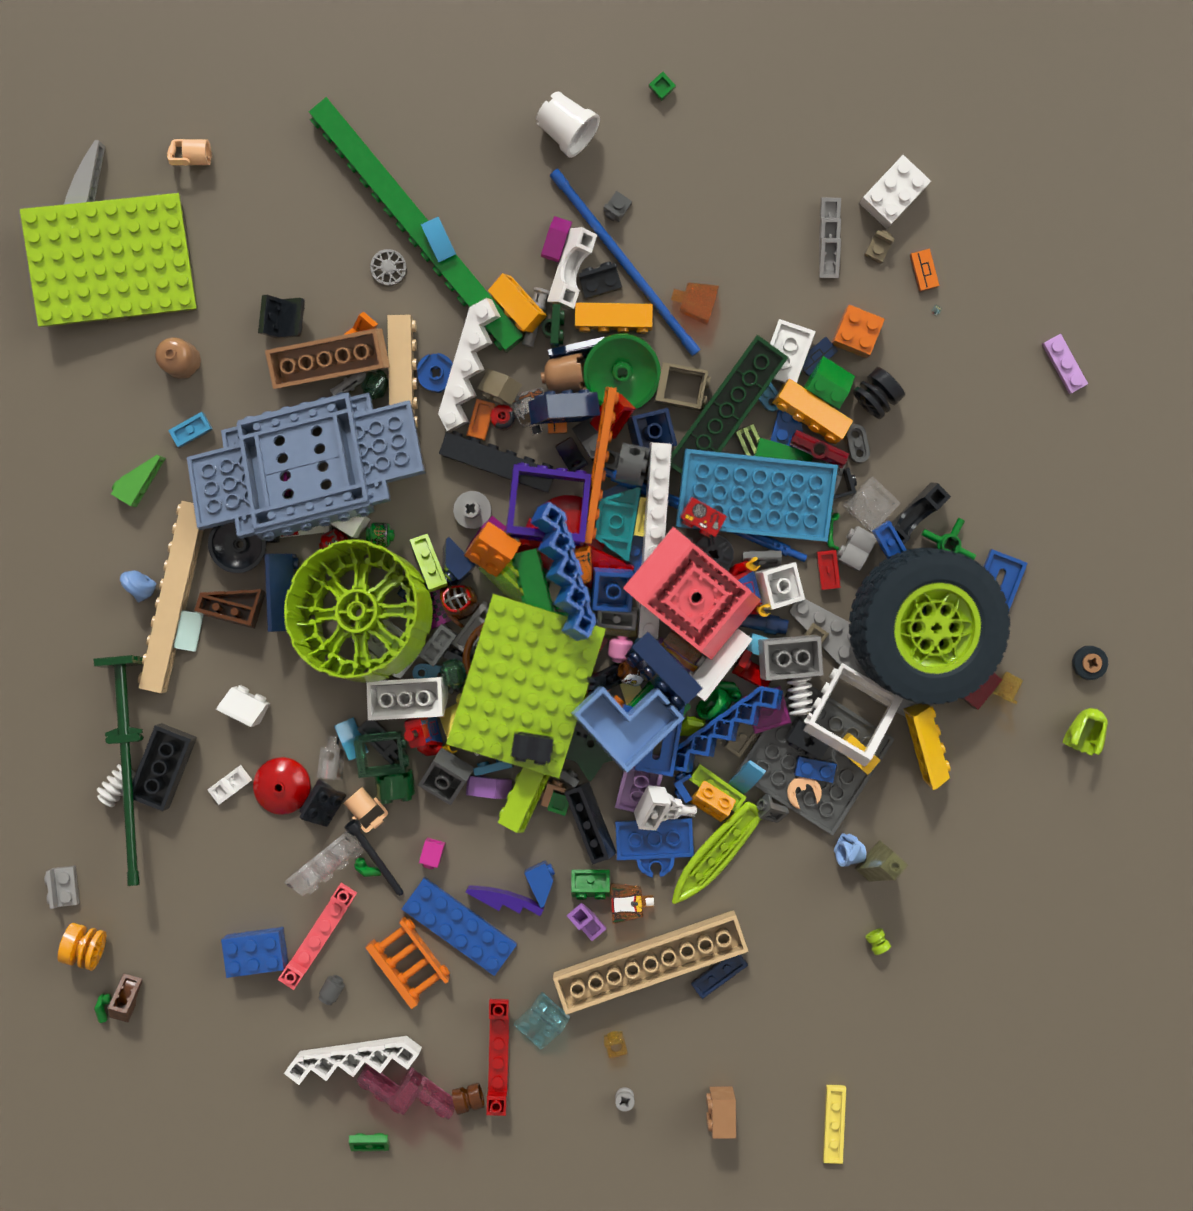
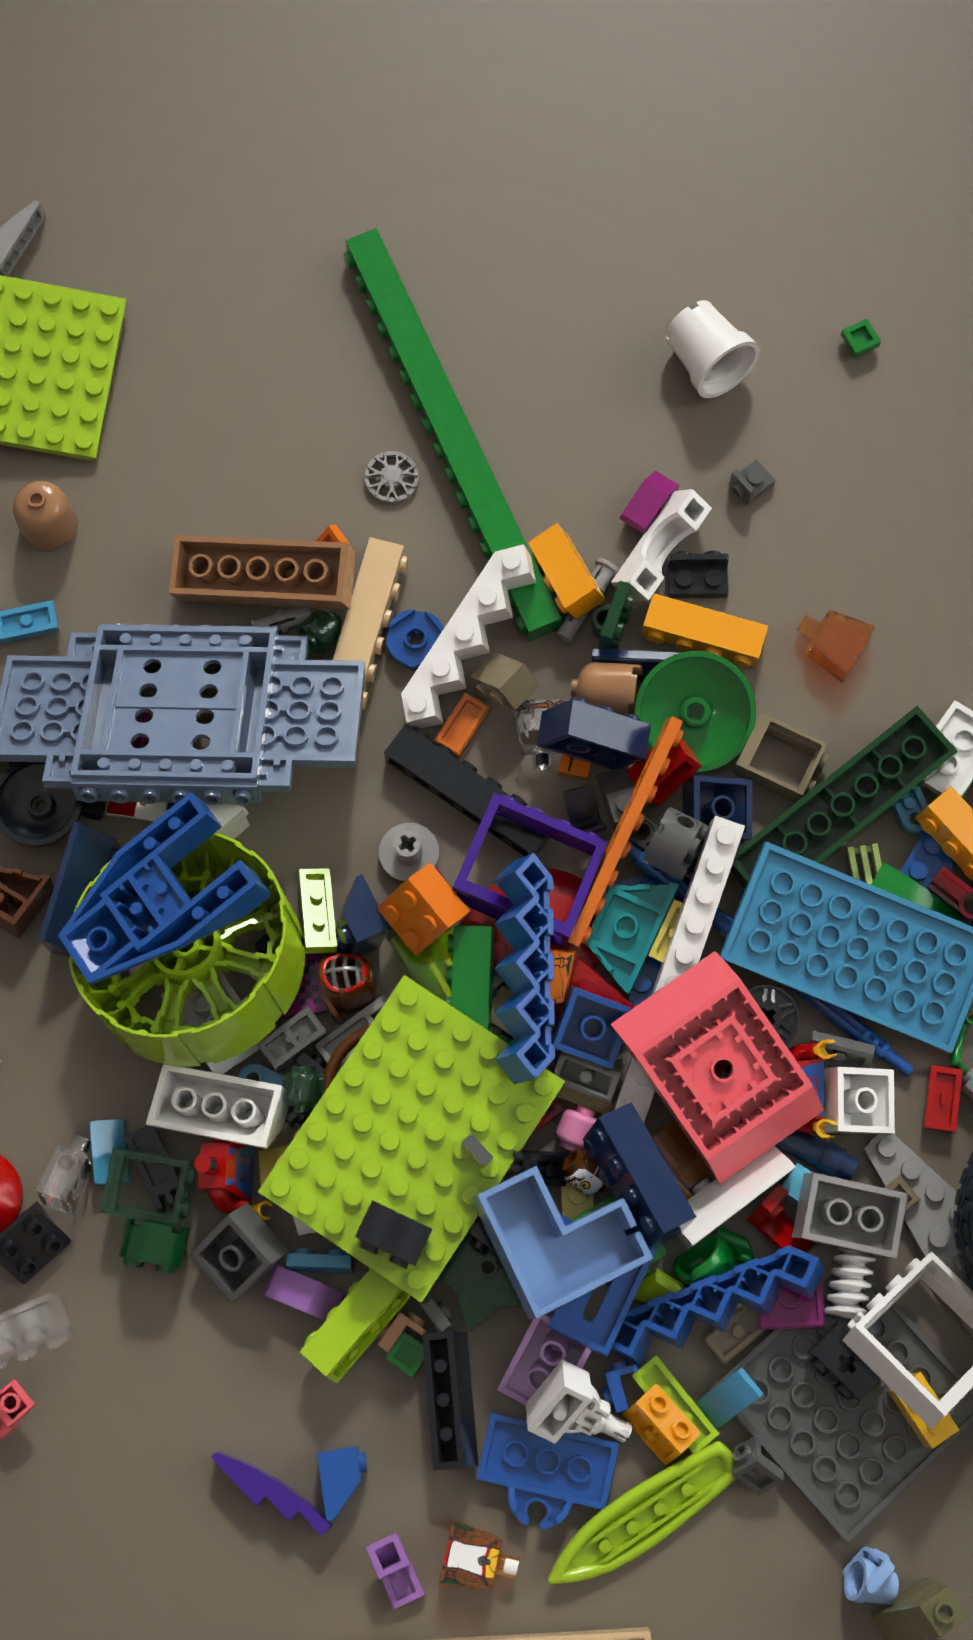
camera: 20 degrees right, 15 degrees down
(193, 152) = (165, 252): light nougat piece -> none
(281, 317) = (213, 501): black bracket -> none
(323, 602) = (140, 906): none -> blue wedge
(354, 828) = (66, 1294): black piece -> none
(360, 804) = (90, 1261): light nougat piece -> none
(366, 871) = (60, 1374): green arm -> none
(380, 534) = (262, 844): green head -> none
(398, 979) = (45, 1546): orange fence -> none
(432, 853) = (176, 1377): dark pink brick -> none
(438, 239) = (477, 452): dark azure slope -> none
(459, 926) = (182, 1517): blue plate -> none
(502, 424) = (496, 728): red head -> none
(563, 184) = (805, 694): blue piece -> none
(566, 686) = (477, 1150): none -> dark grey tile
(590, 884) = (420, 1507): green bracket -> none
(703, 517) = (764, 951): red brick -> none
(801, 782) = (817, 1433): light nougat head -> none
(815, 769) = (845, 1418): blue plate -> none

